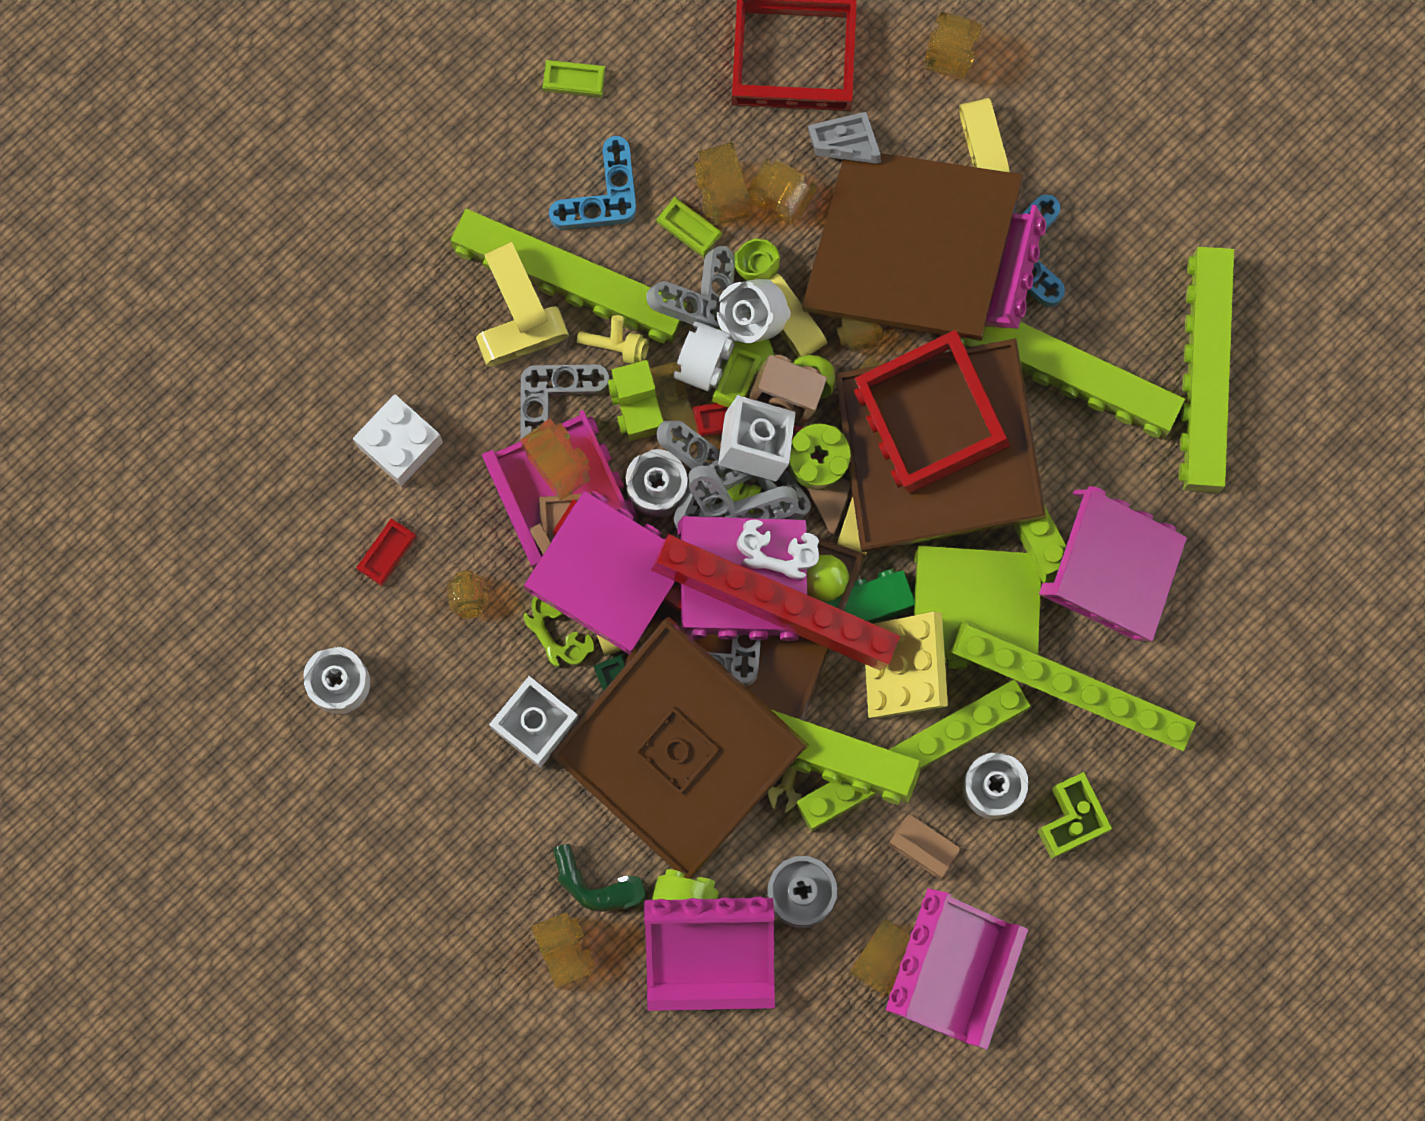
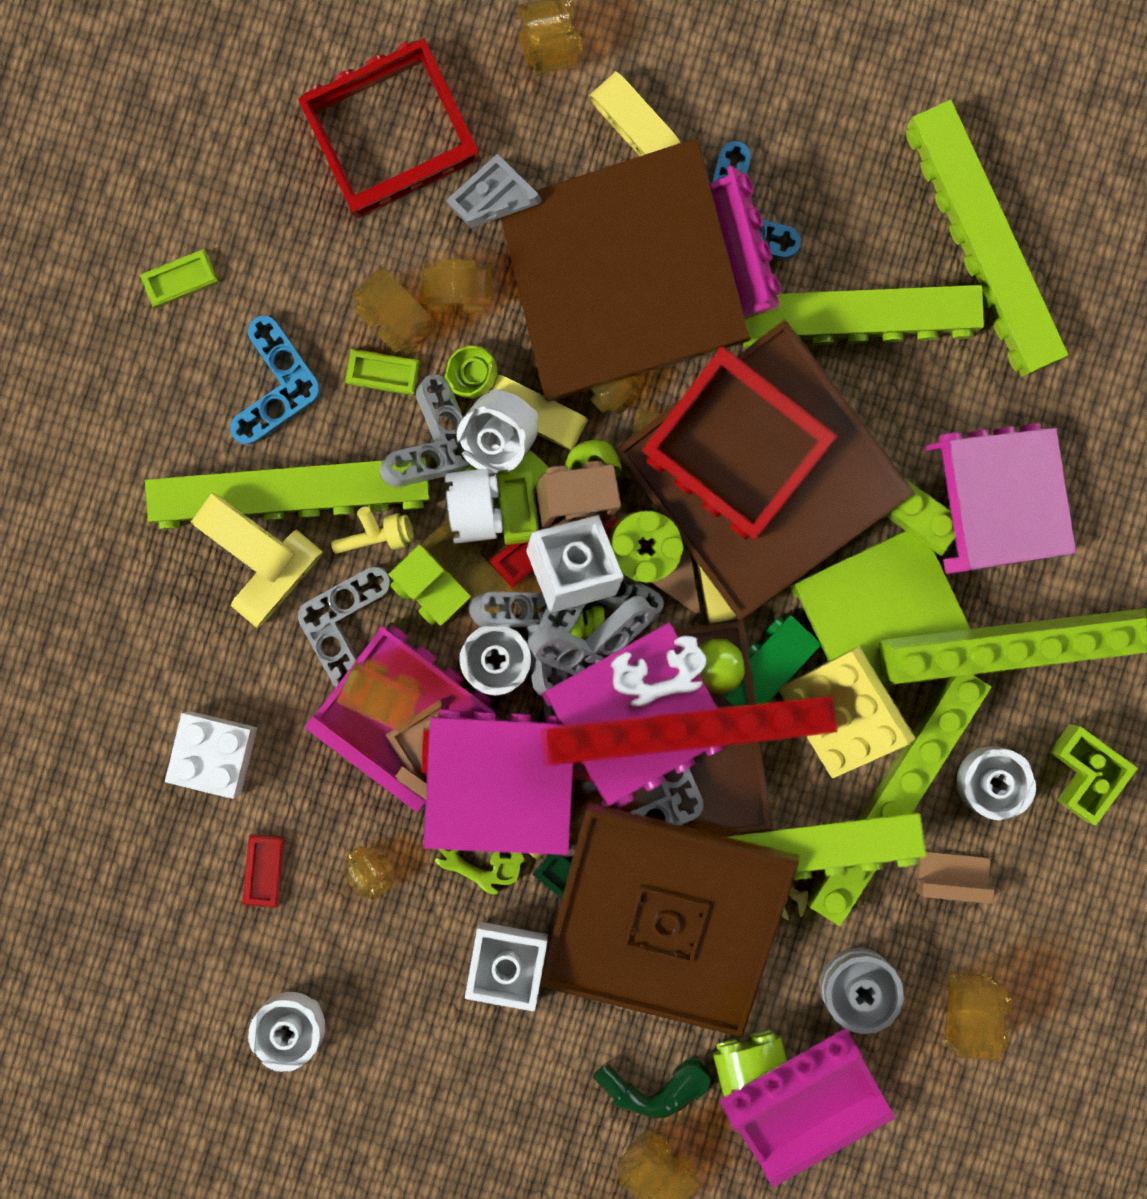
camera: 30 degrees left, 10 degrees up
(956, 969) = (1057, 989): dark pink panel -> none

